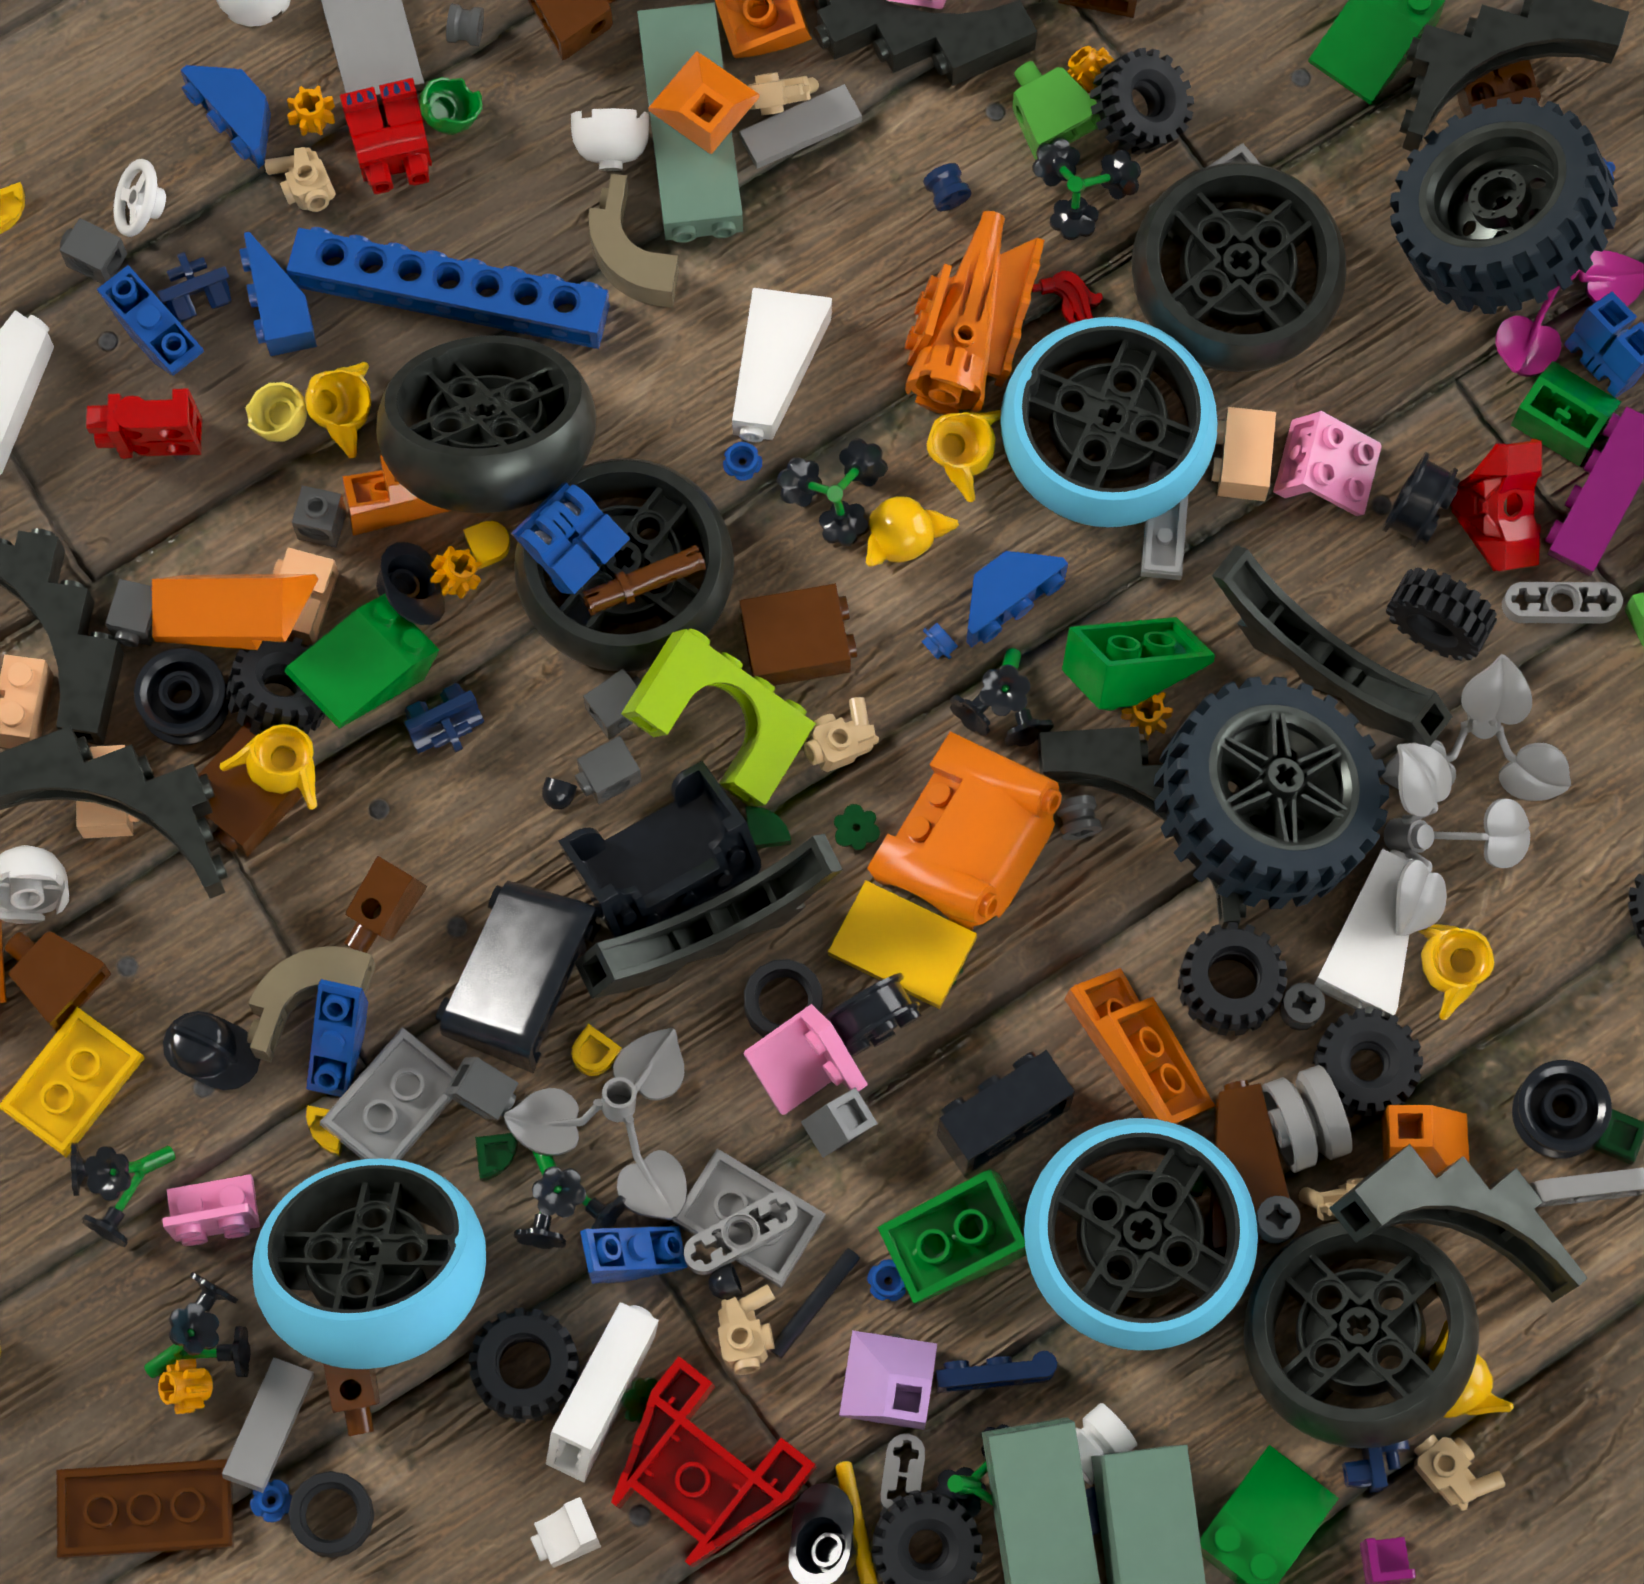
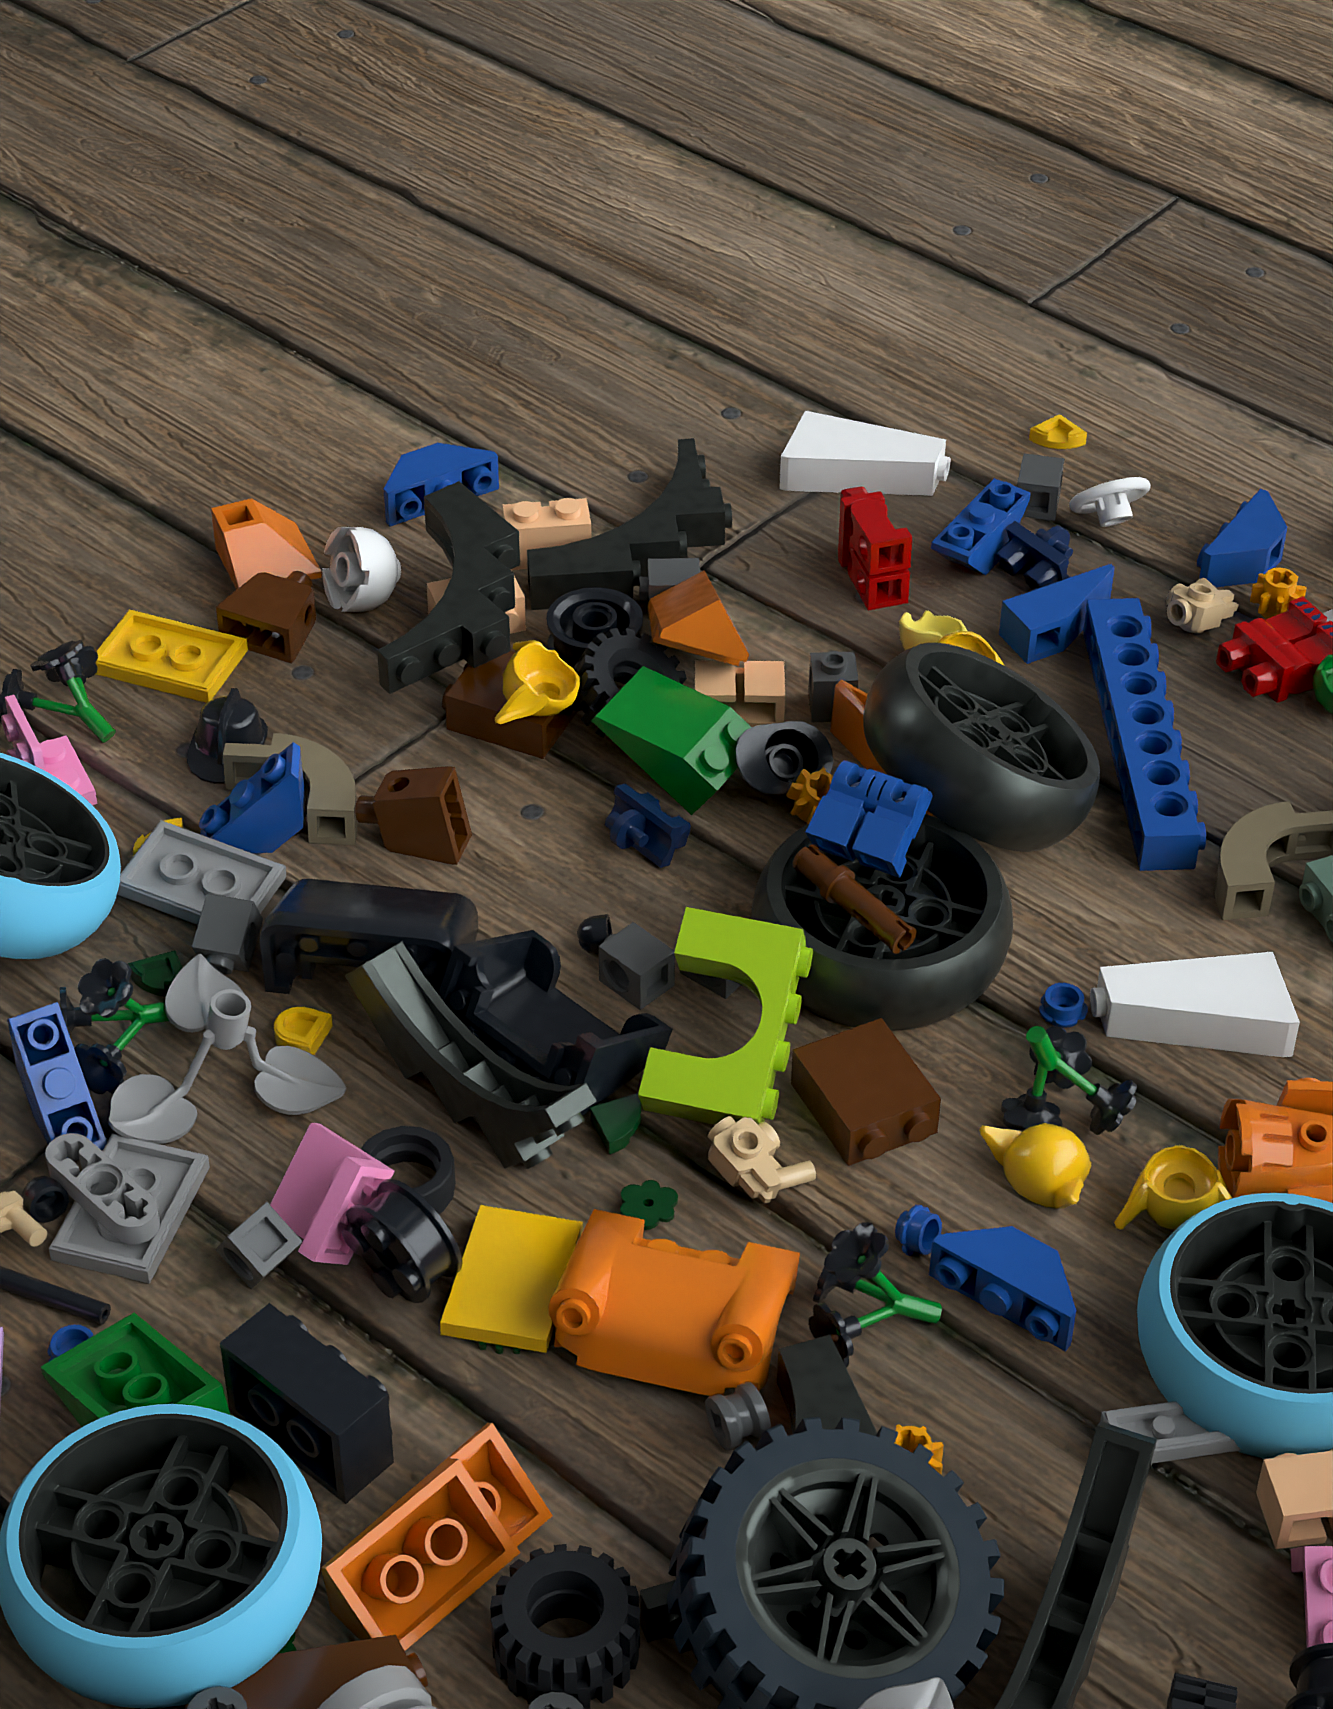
camera: 75 degrees right, 30 degrees down
(1131, 659) = (968, 1408): green slope -> none

